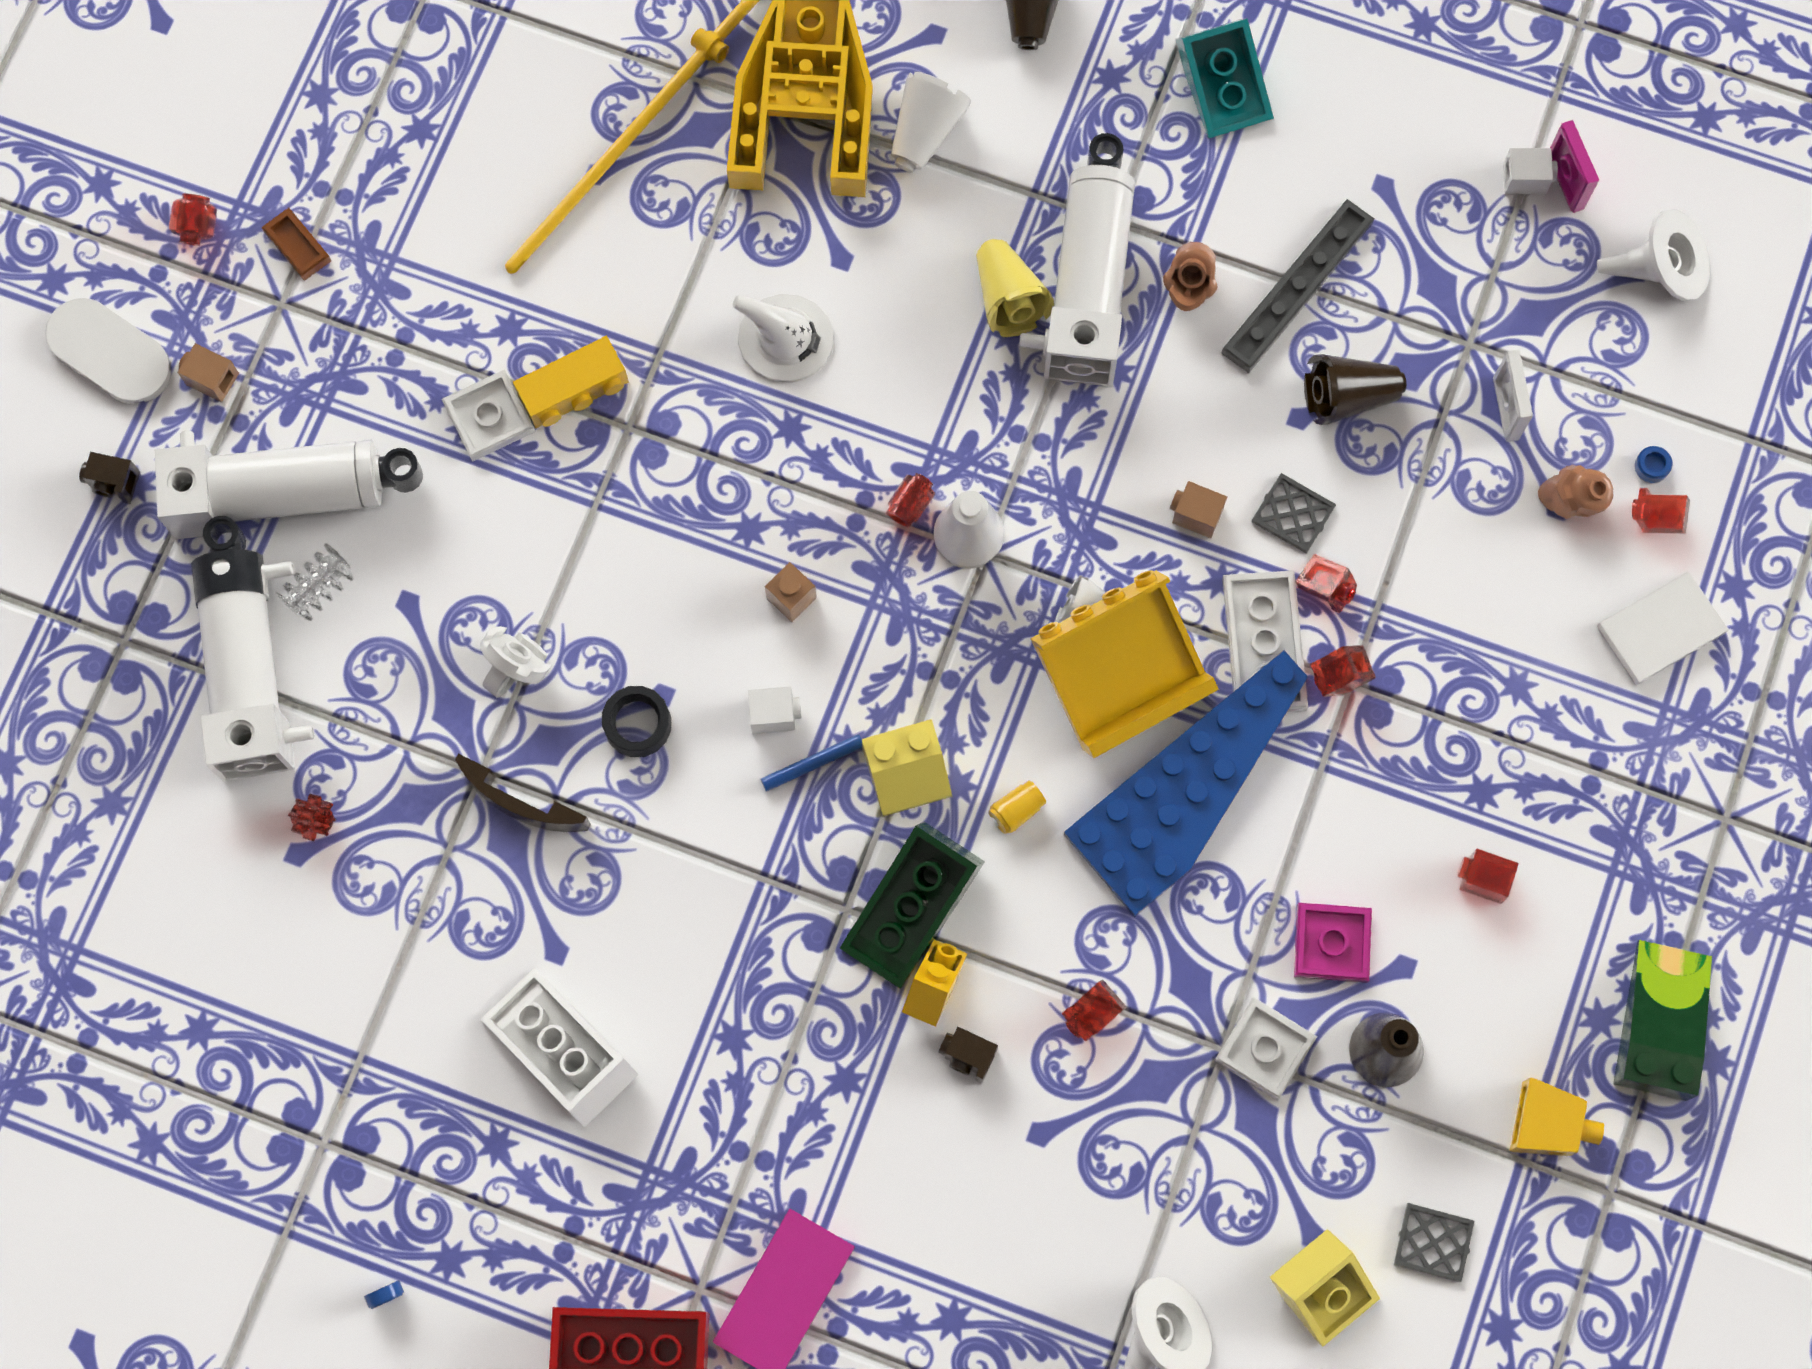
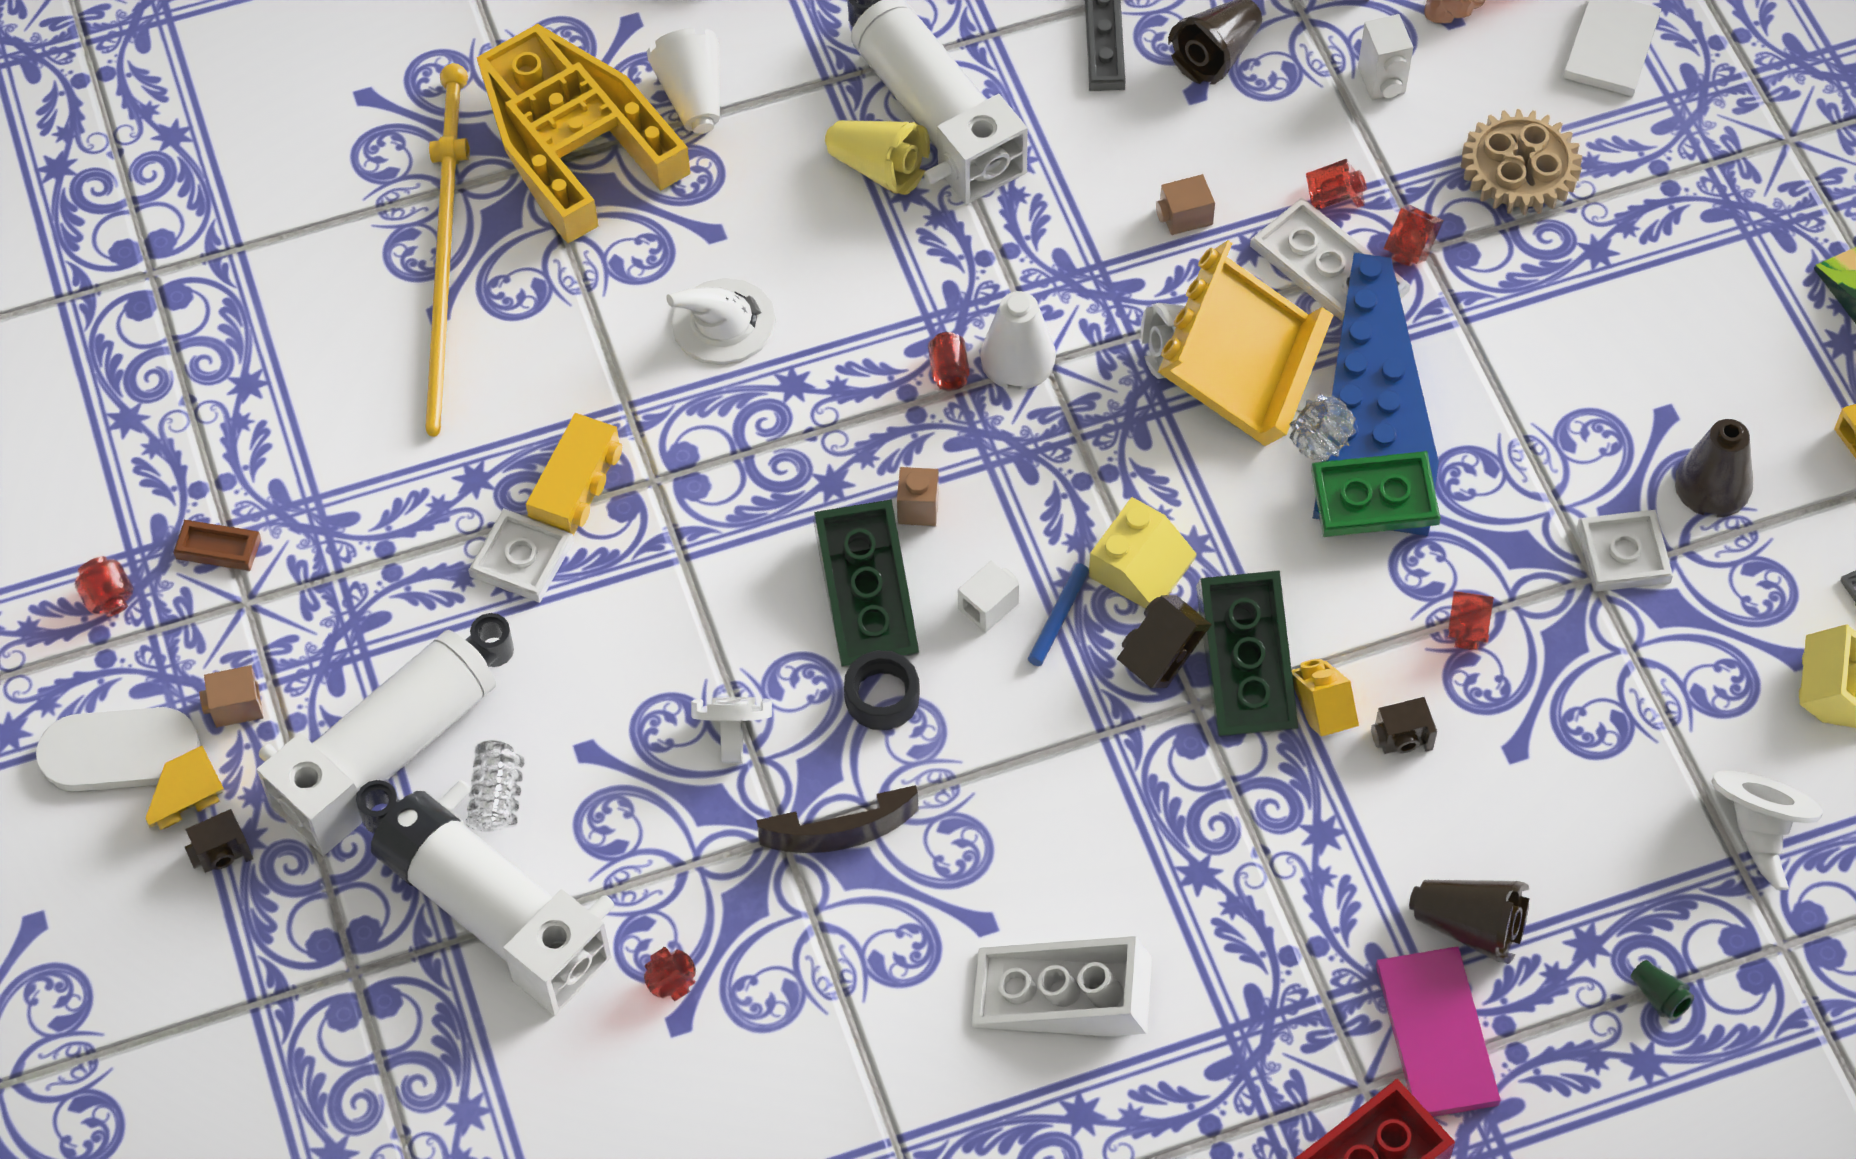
camera: 40 degrees left, 15 degrees down
(119, 415) = (182, 785): none -> yellow slope
(696, 629) = (865, 580): none -> dark green slope
(854, 848) = (1163, 640): none -> dark brown brick
(883, 1235) = (1474, 912): none -> dark brown cone
(1017, 807) = (1259, 520): yellow piece -> none
(1115, 857) = (1375, 494): none -> green tile
(1121, 775) = (1322, 428): none -> clear gear
(1191, 276) = (1016, 44): nougat head -> none
(1307, 493) = (1258, 139): dark grey window -> none
(1333, 942) = (1597, 436): dark pink tile -> none
(1459, 506) = (1385, 57): none -> white brick
(1487, 875) = (1664, 299): clear red brick -> none
(1518, 687) = (1542, 158): none -> tan gear

